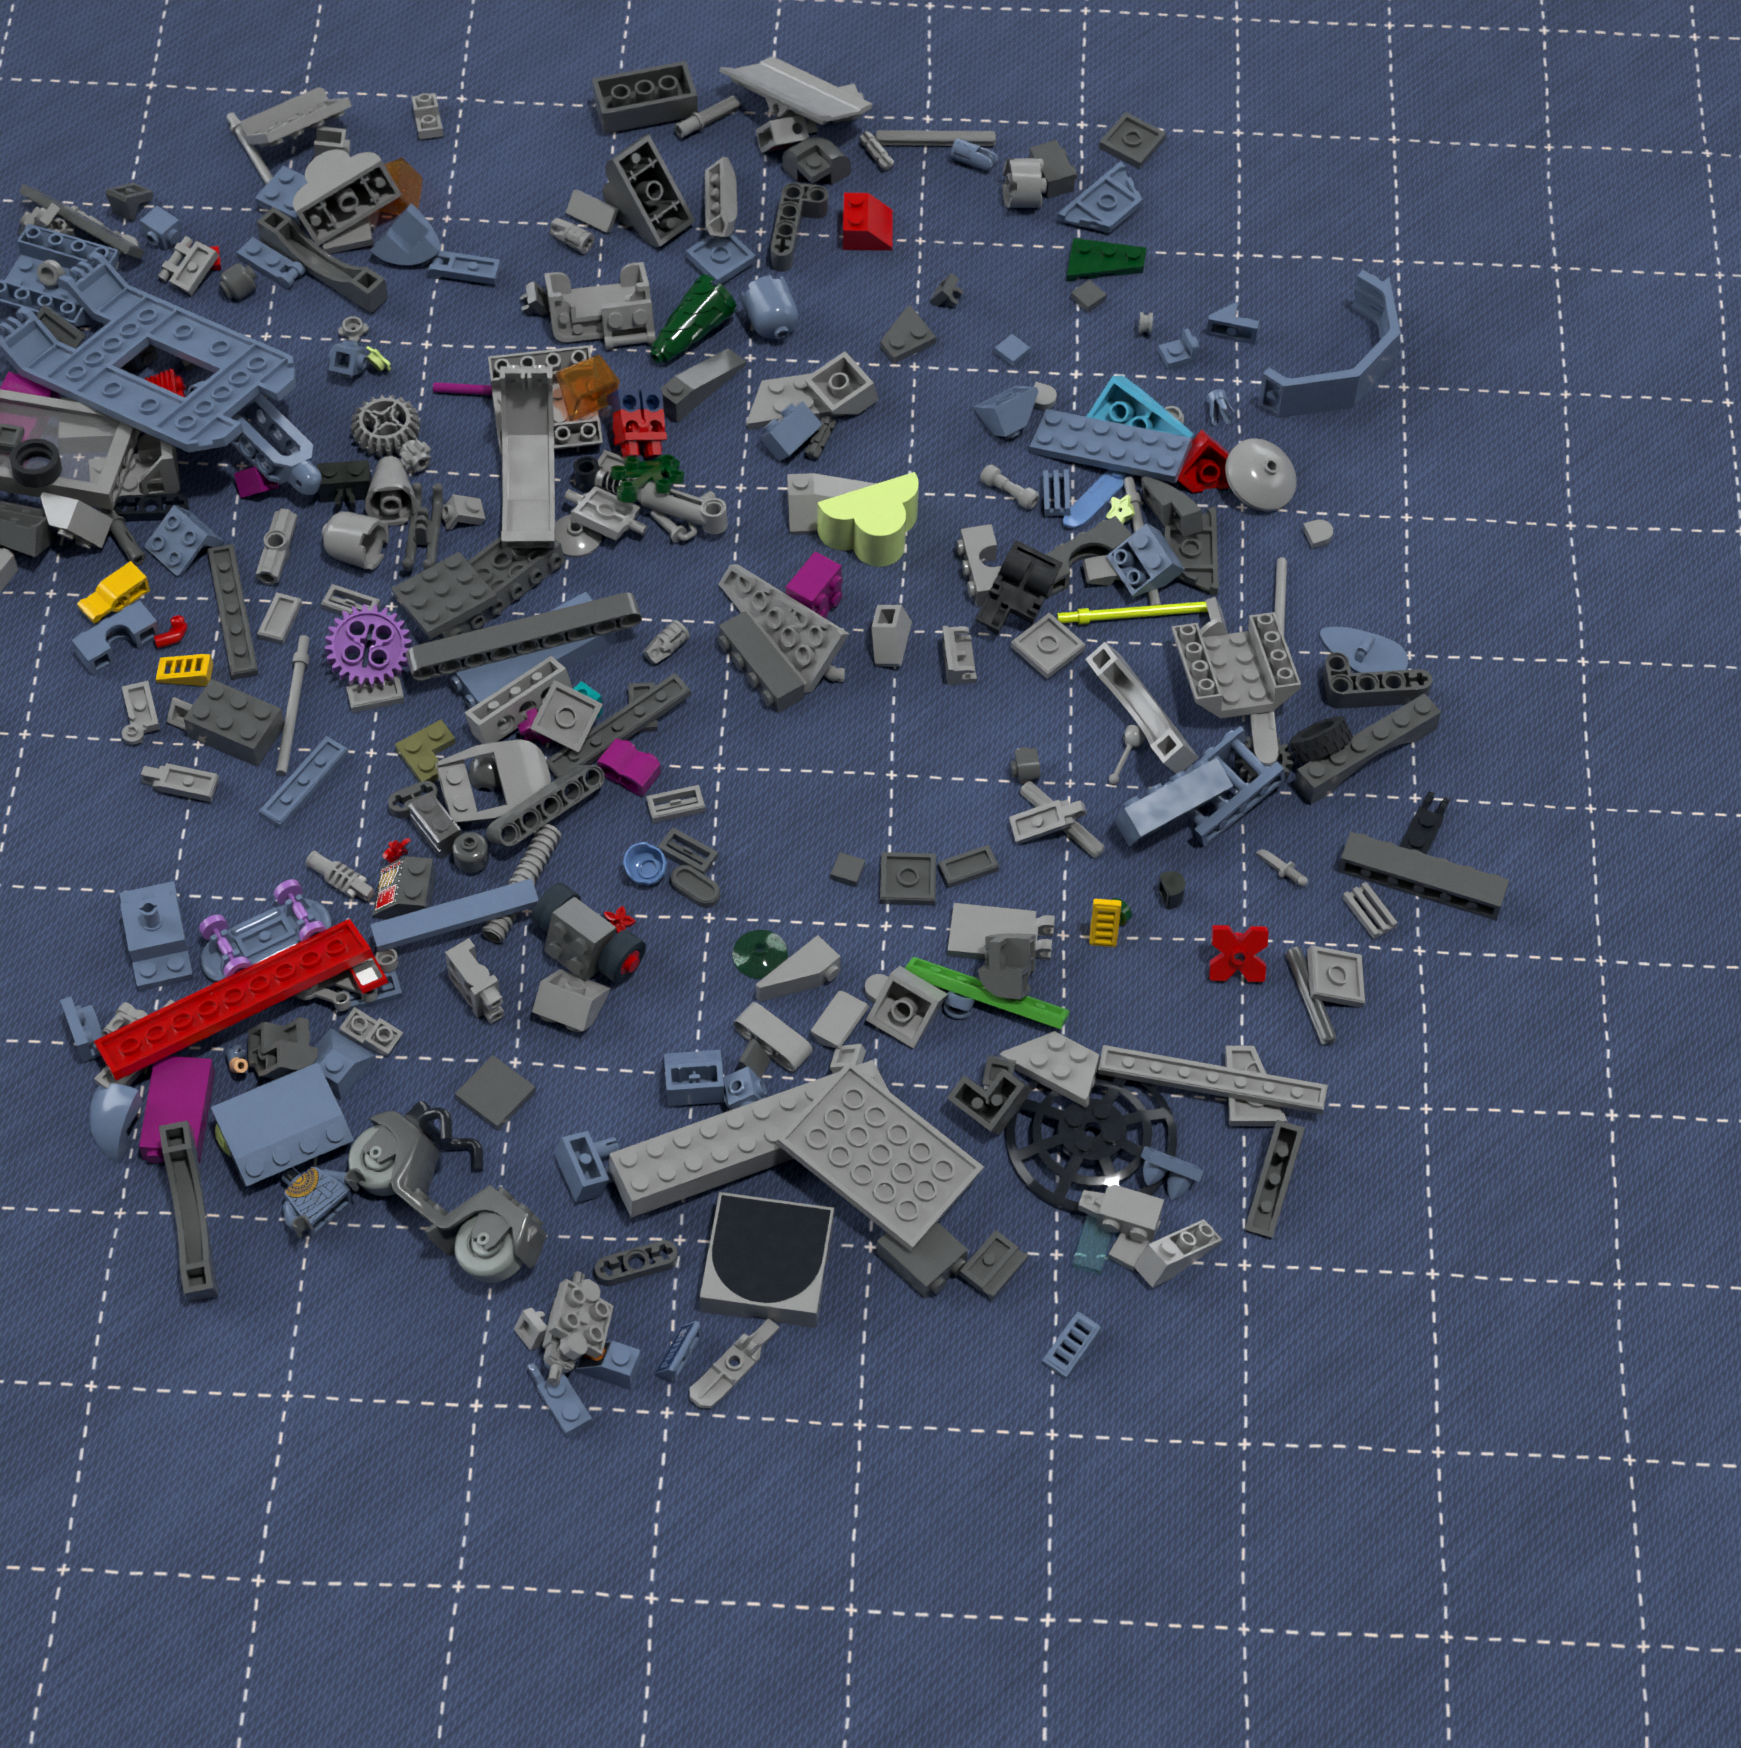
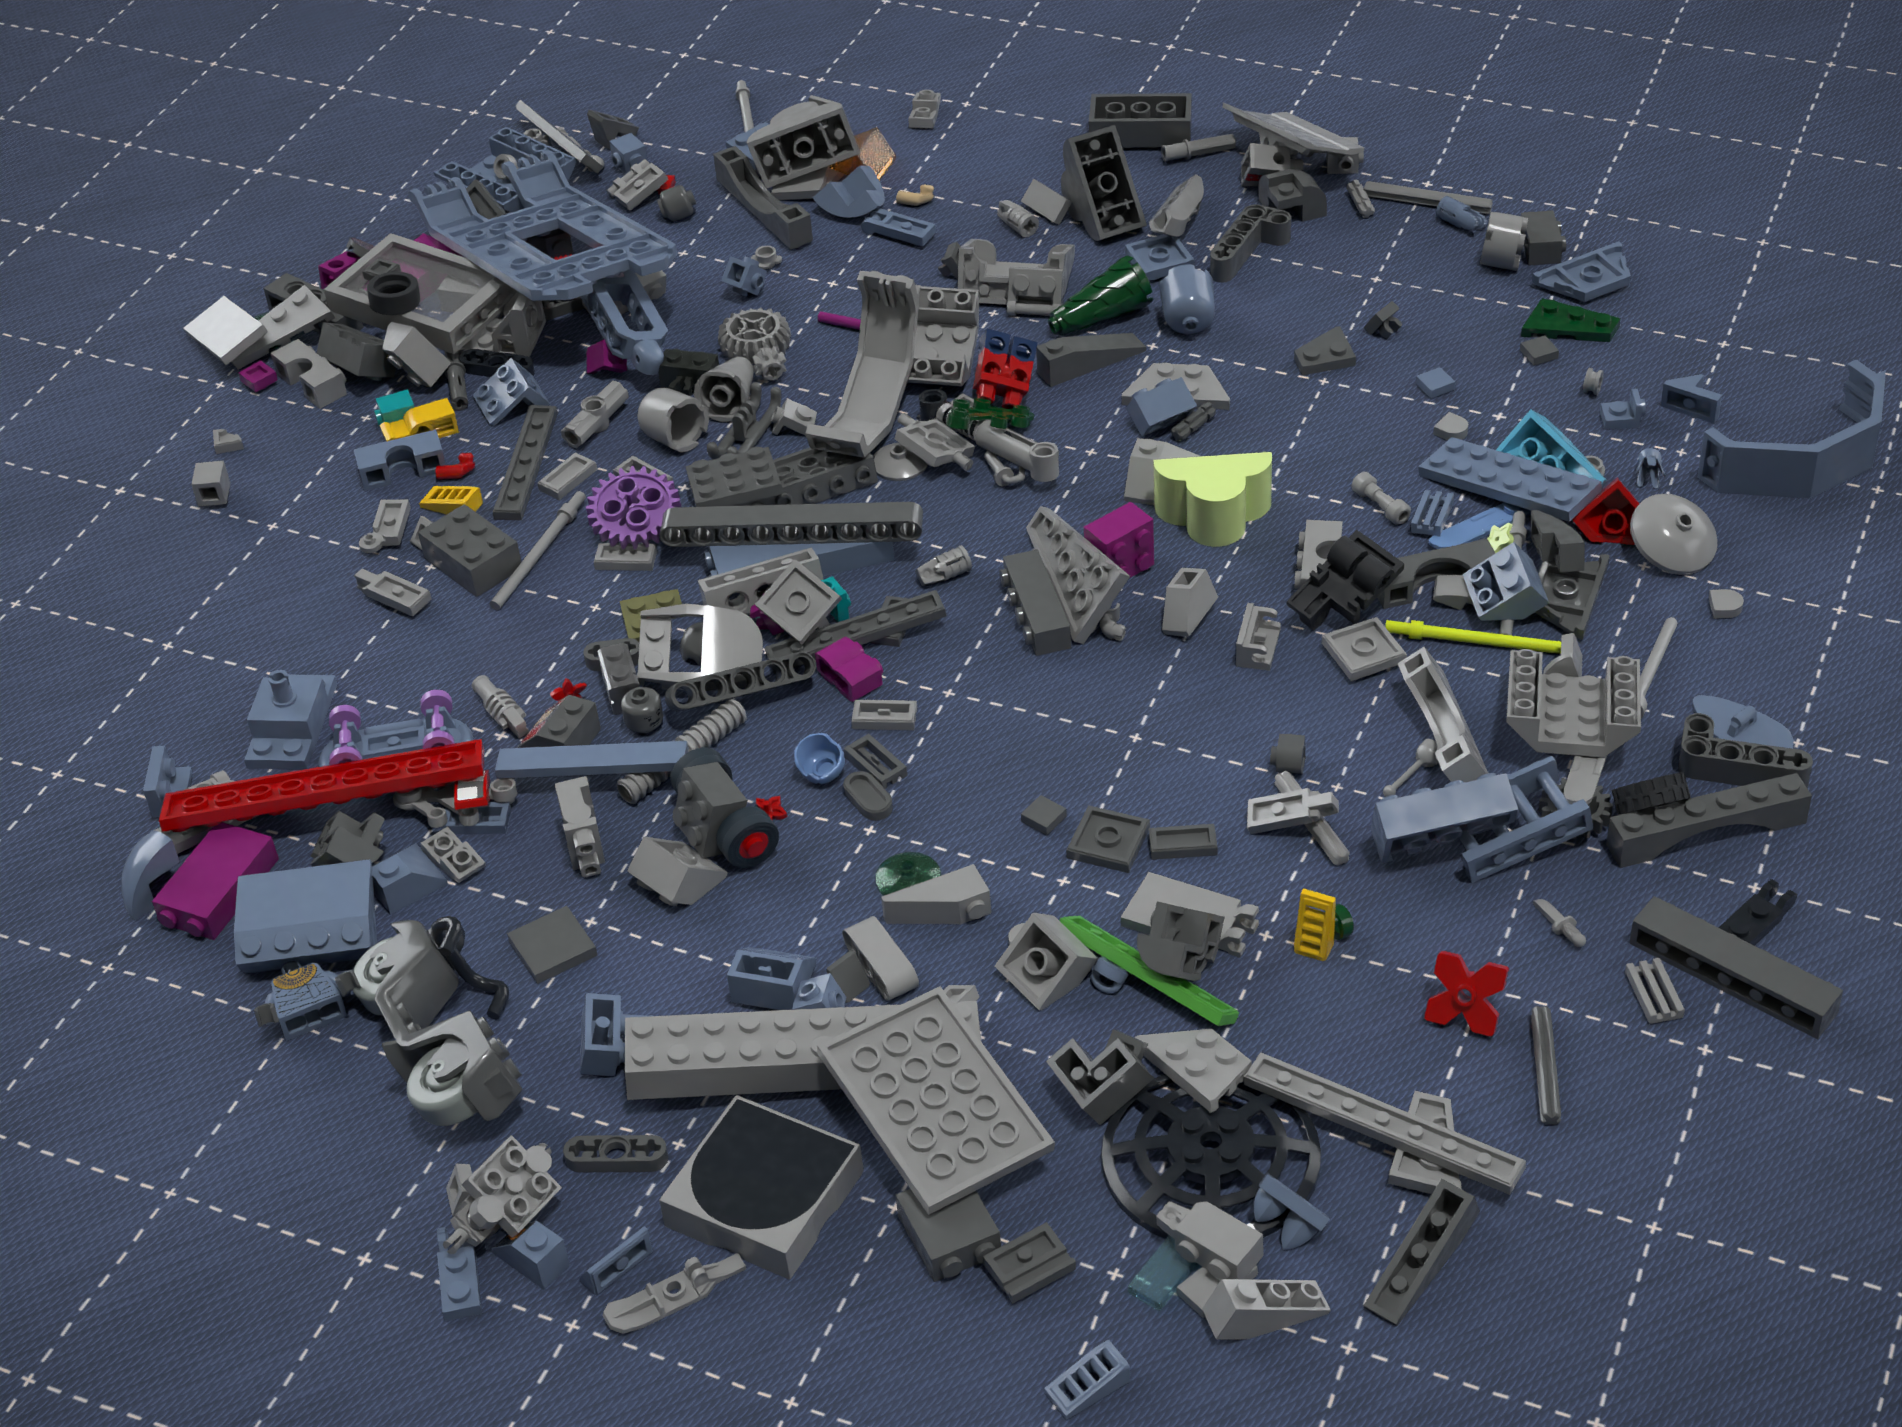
camera: 25 degrees right, 15 degrees down
(38, 217) = (524, 122): light grey slope -> none
(82, 582) = (393, 407): none -> teal brick
(190, 1211) = (145, 1027): dark grey arch -> none
(235, 1061) = (301, 847): arm -> none
(270, 263) = (716, 196): sand blue plate -> none
(292, 117) = (792, 87): light grey bracket -> none
(303, 782) = (512, 618): sand blue tile -> none
(377, 360) = (774, 283): yellowish green plate -> none
(467, 227) = (915, 199): none -> tan arm
(586, 386) = (959, 326): clear orange slope -> none
(838, 1020) = (962, 957): light grey slope -> none
(843, 386) = (1234, 377): light grey slope -> none
(866, 223) = (1321, 251): red slope -> none
(1008, 410) = (1406, 430): sand blue slope -> none
(1132, 140) = (1641, 230): dark grey tile -> none
(1171, 888) = (1413, 912): pearl dark grey brick -> none
(1336, 976) = (1584, 1049): light grey plate -> none

